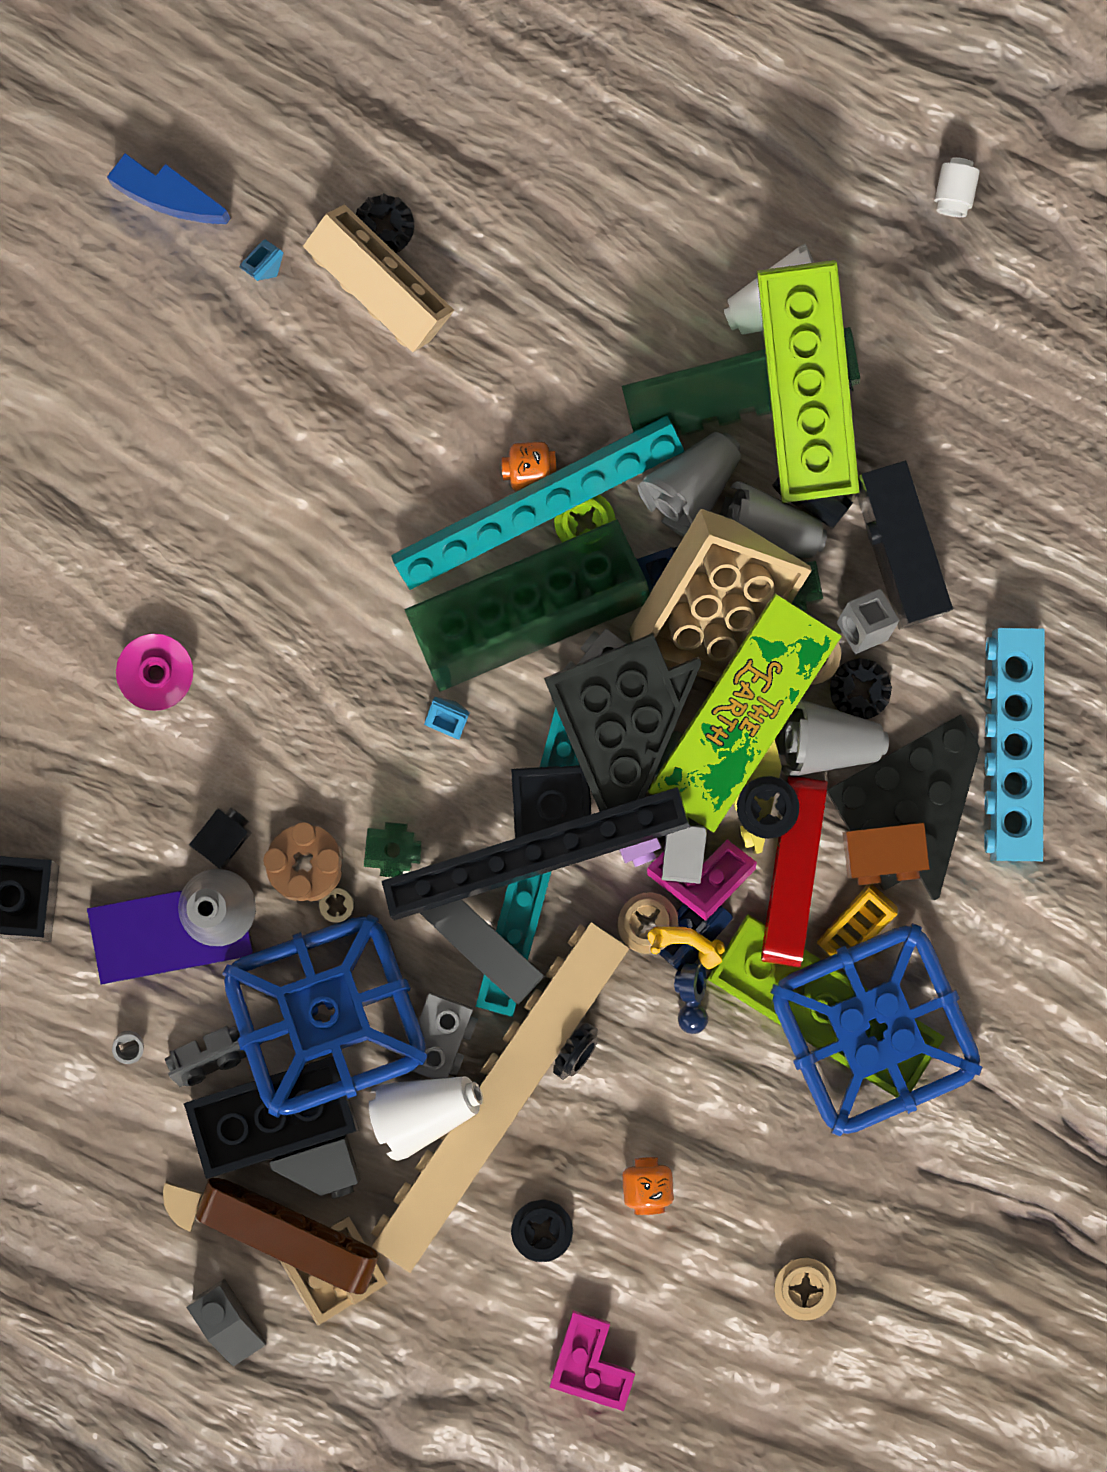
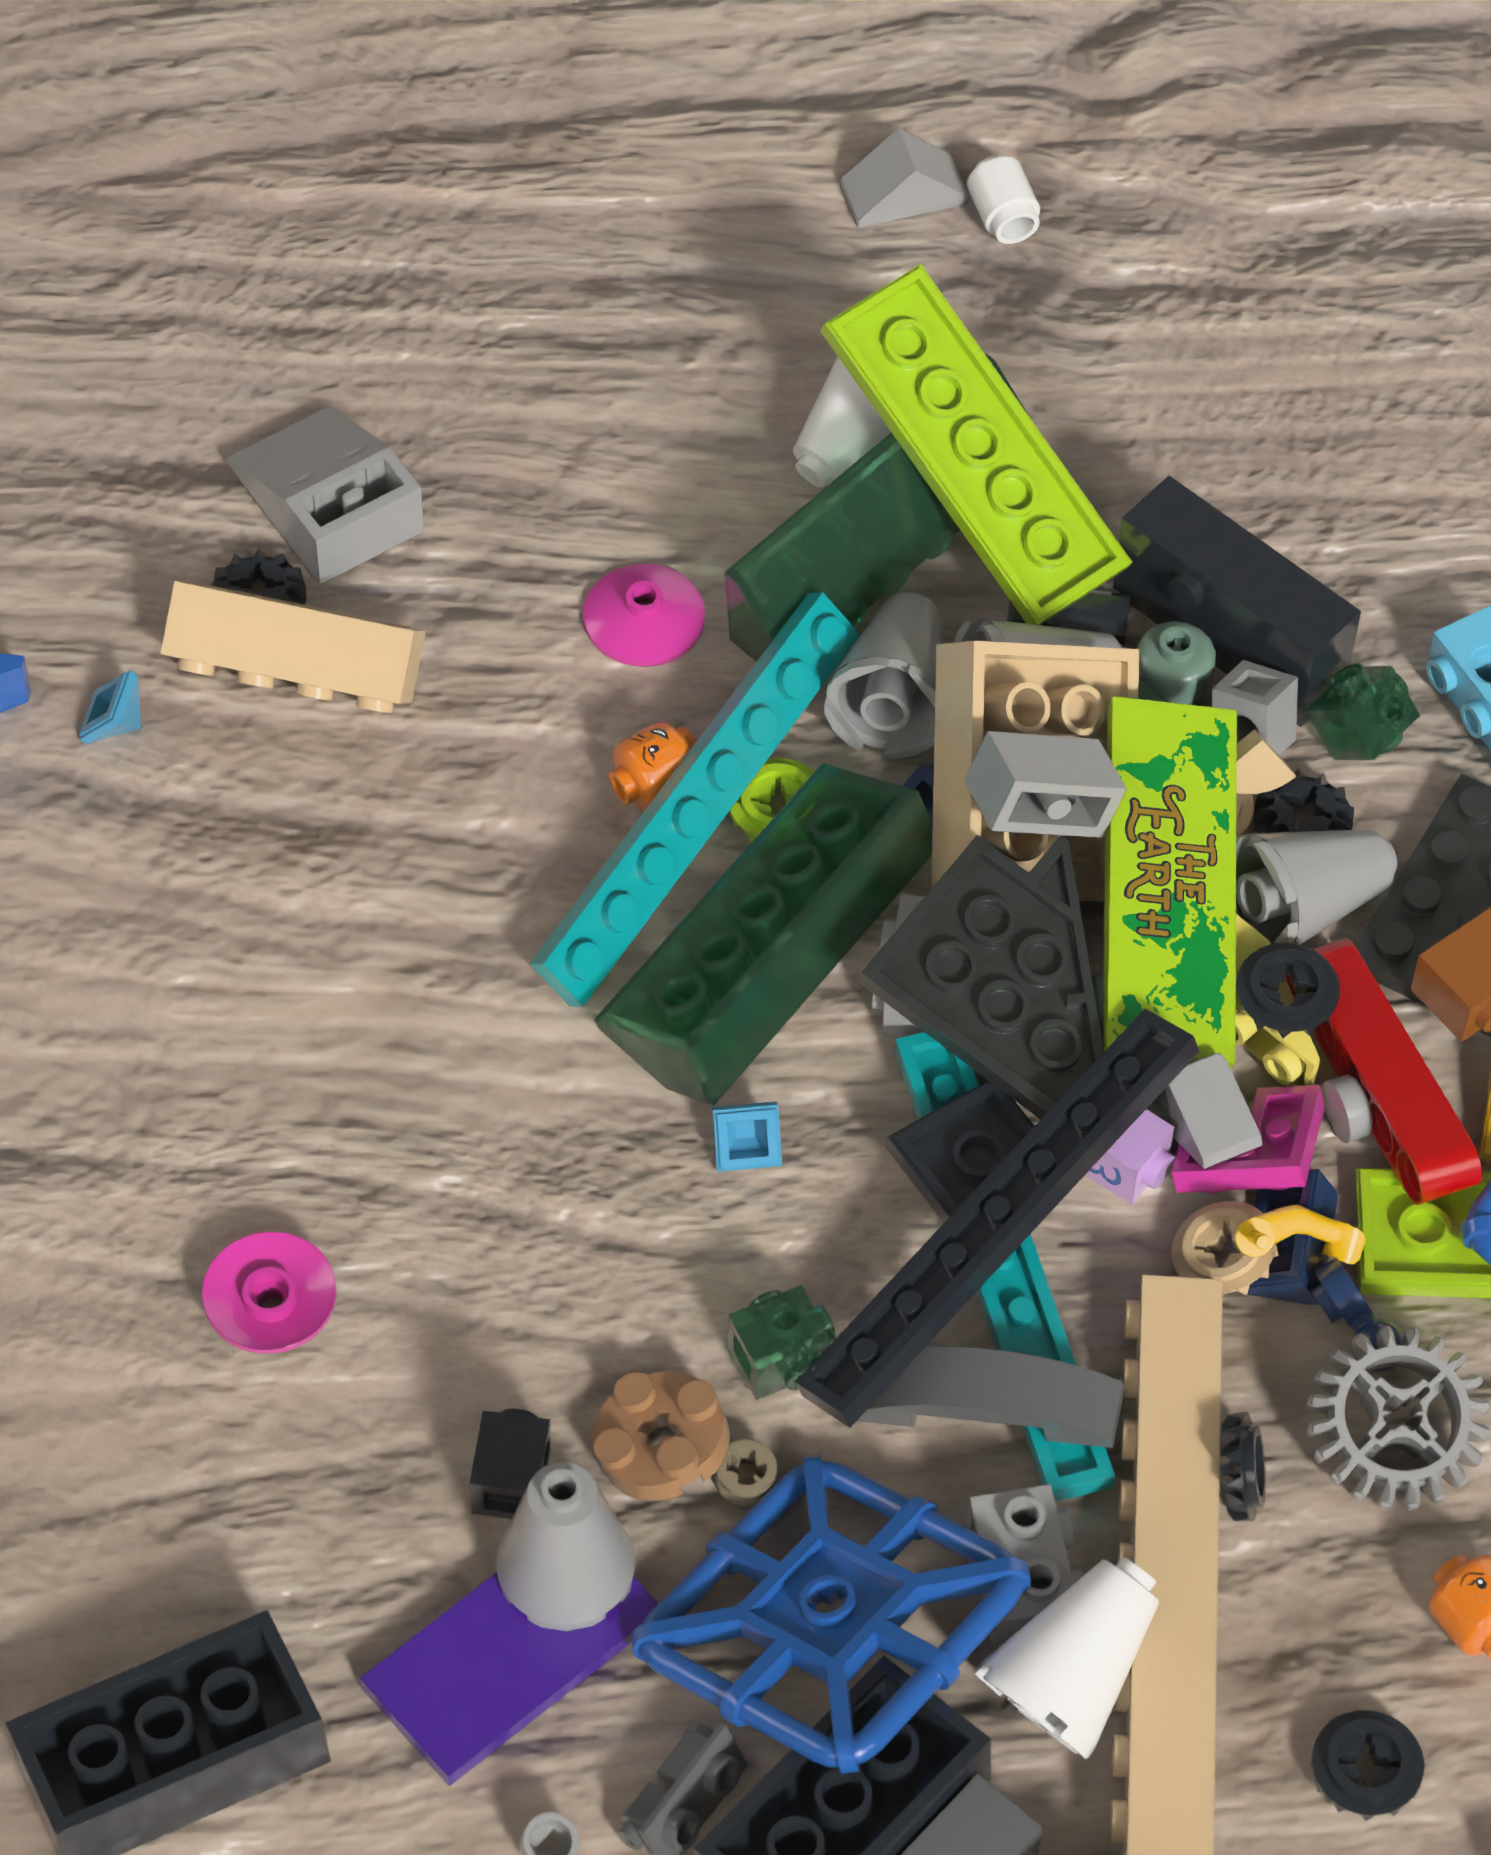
camera: 30 degrees left, 30 degrees down
(455, 178) = (332, 492): none -> light grey slope
(583, 374) = (644, 632): none -> dark pink dish
(642, 1080) = (1419, 1442): none -> light grey gear
(703, 630) = (1045, 784): none -> light grey brick
(764, 880) = (1347, 1108): none -> light grey tile
(836, 573) = (1178, 661): none -> sand green head
(848, 656) = (1260, 766): none -> tan tile
(908, 140) = (902, 181): none -> light grey slope
(930, 651) = (1363, 712): none -> clear green brick

